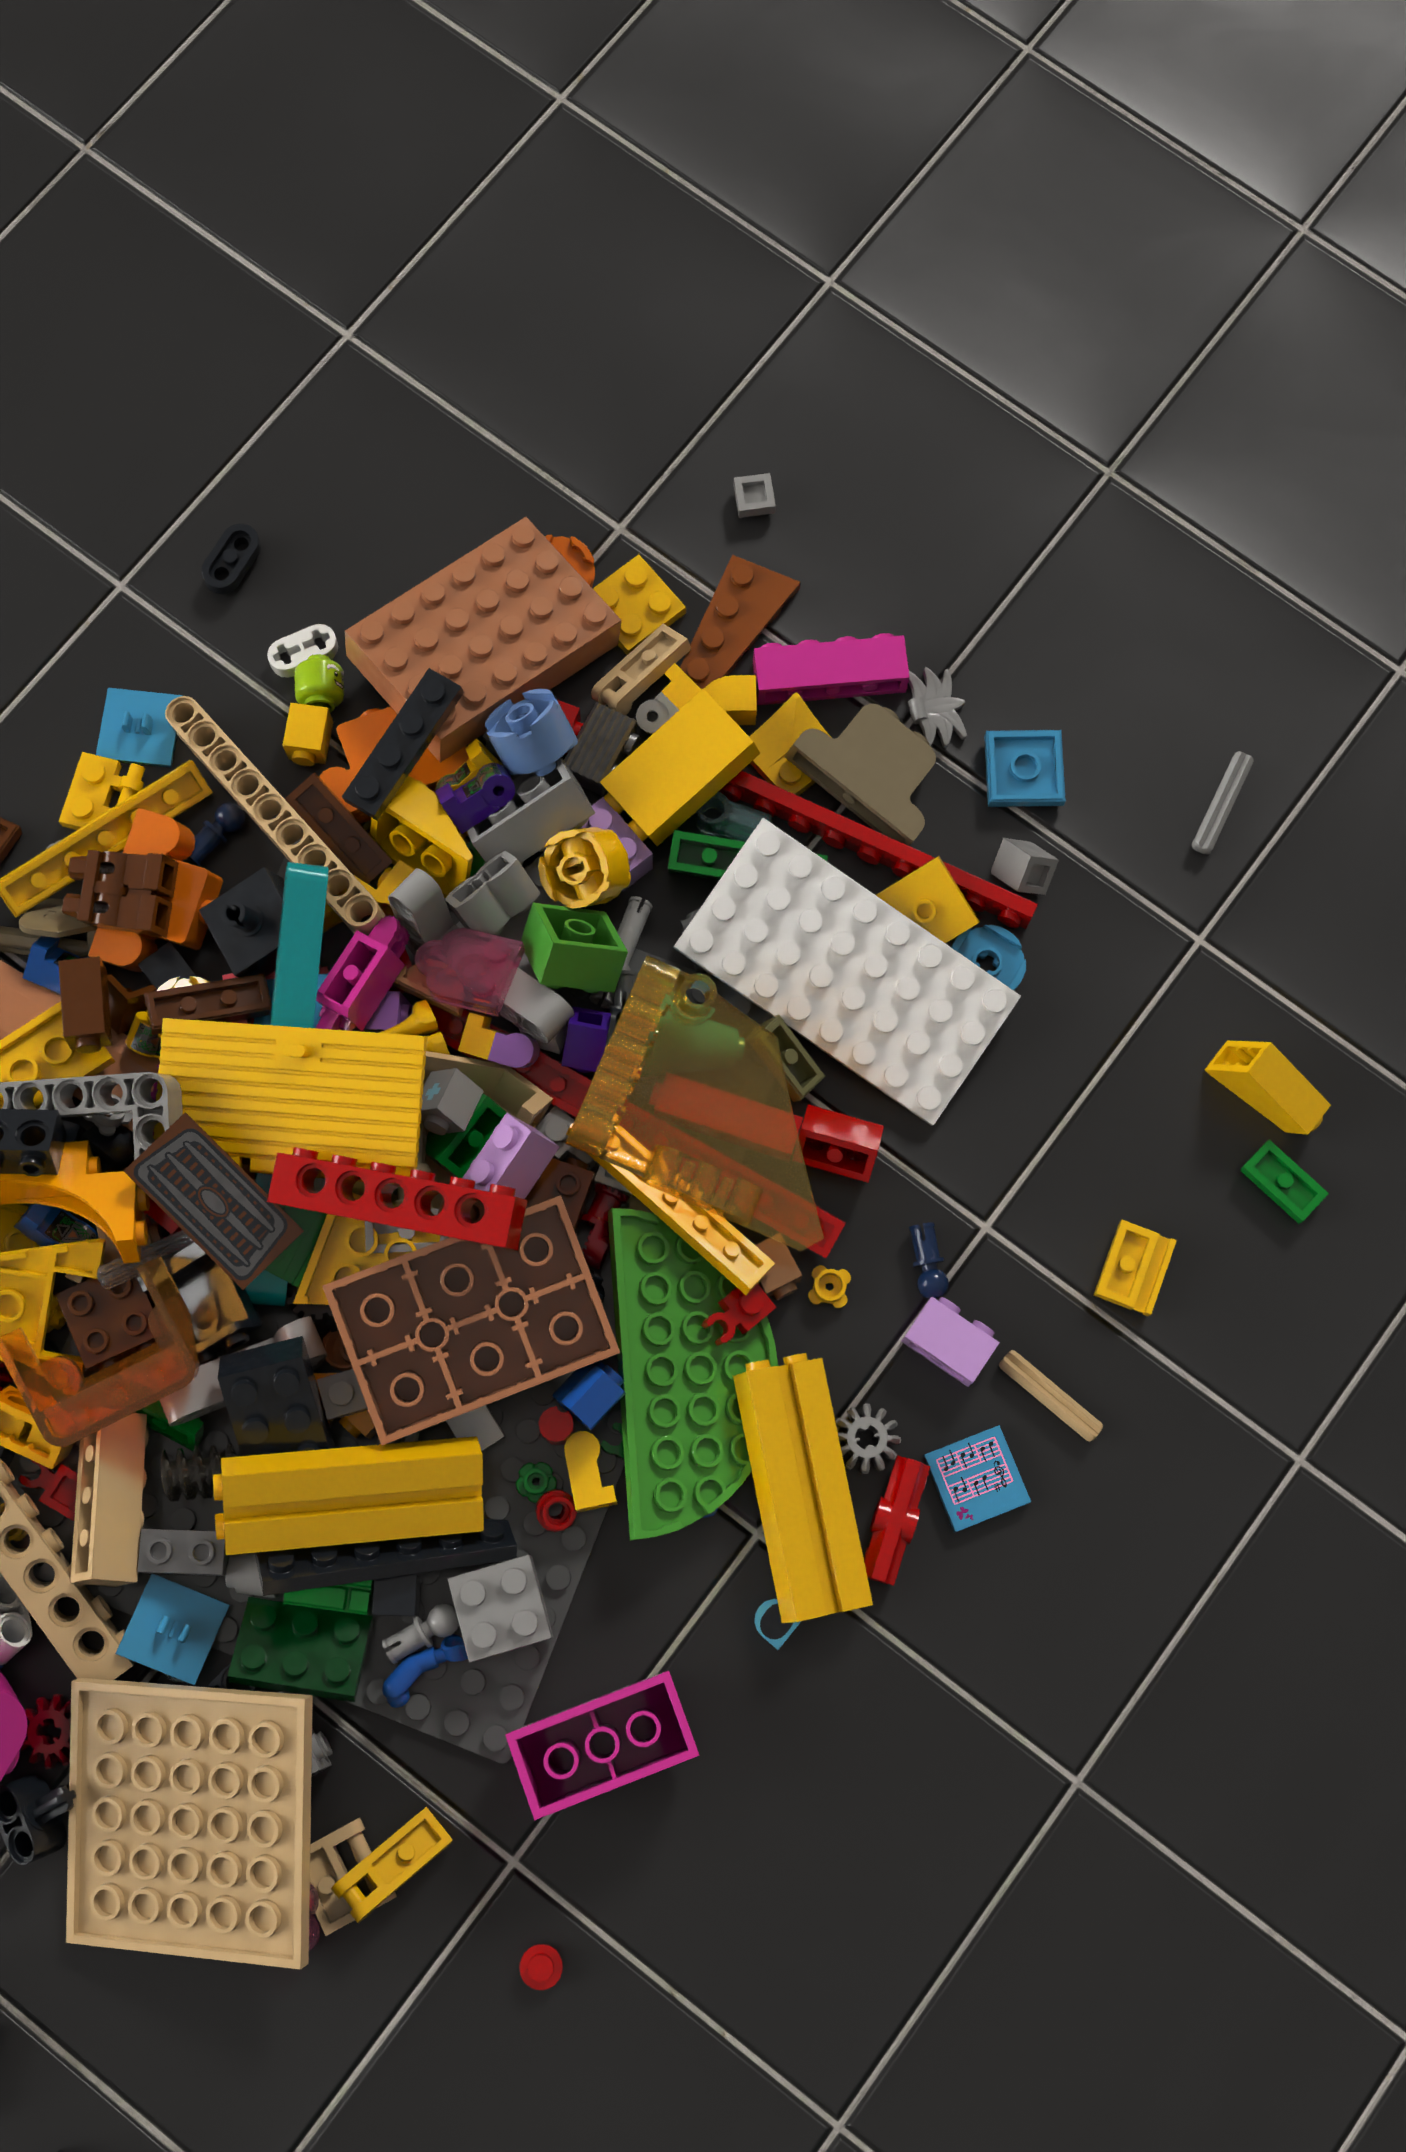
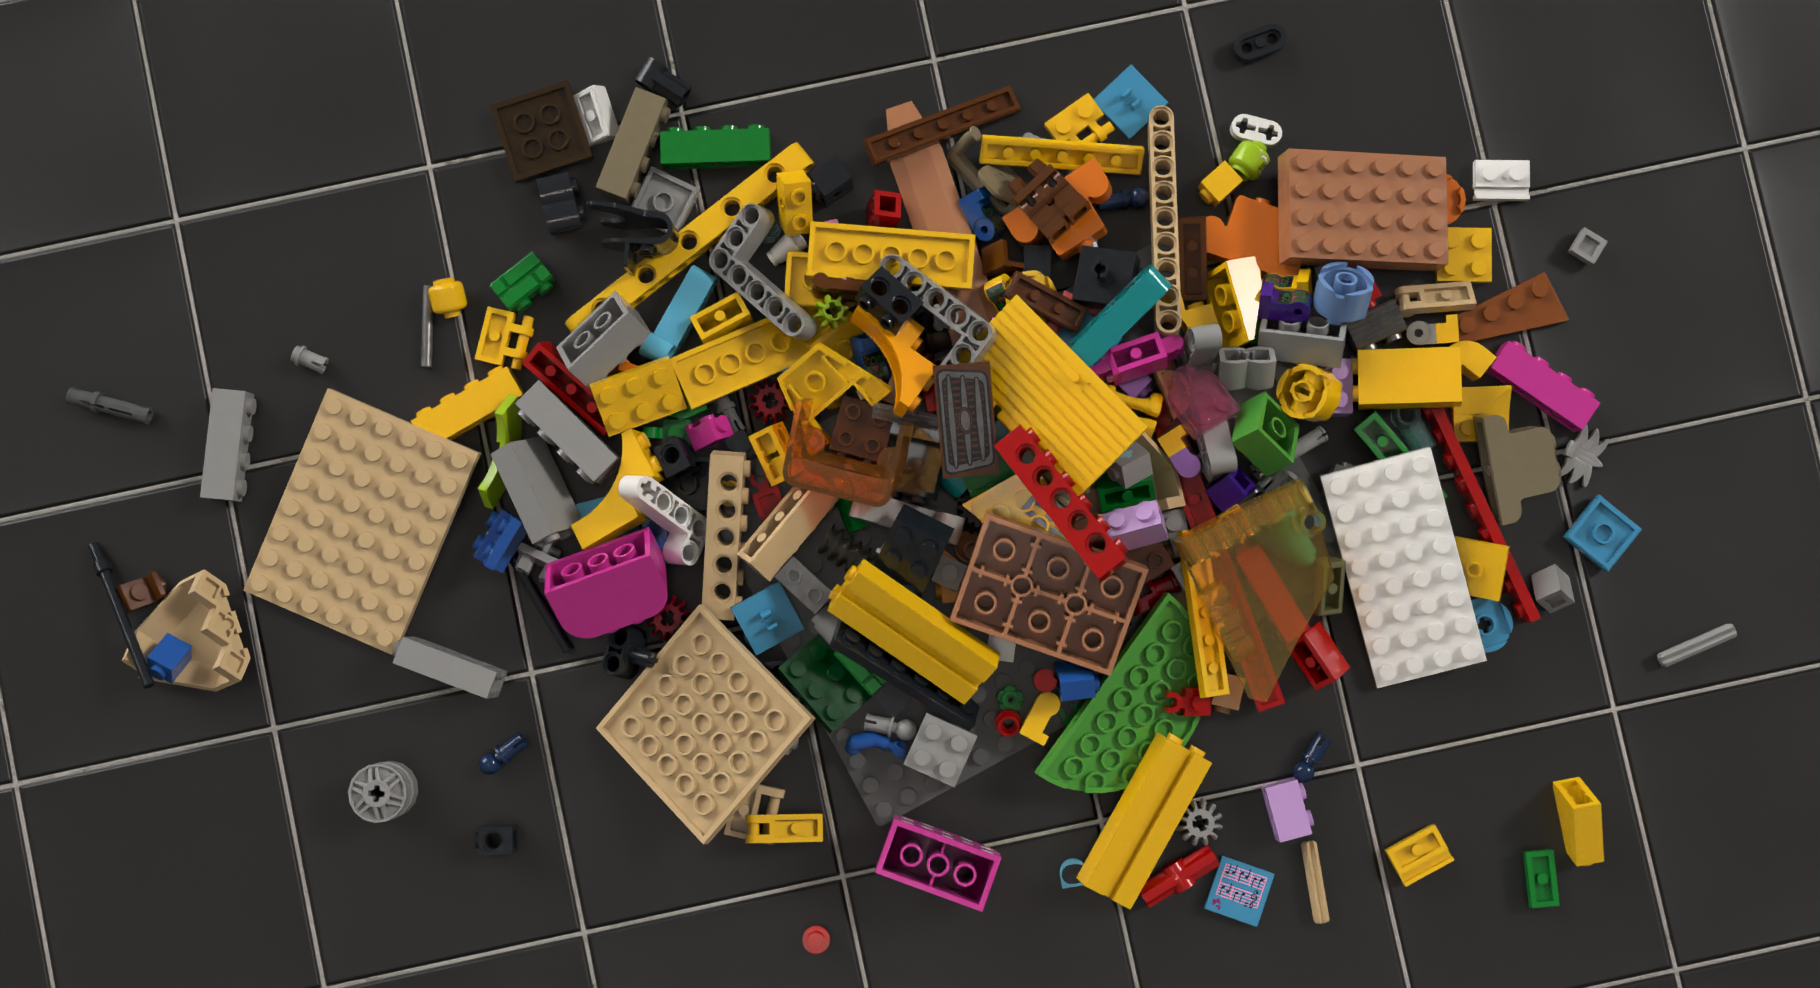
camera: 45 degrees right, 10 degrees up
(85, 1004) = (981, 250): reddish brown brick -> none
(403, 744) = (1268, 244): black plate -> none
(608, 500) = (1501, 180): none -> white plate
(837, 1278) = (1255, 726): yellow plate -> none

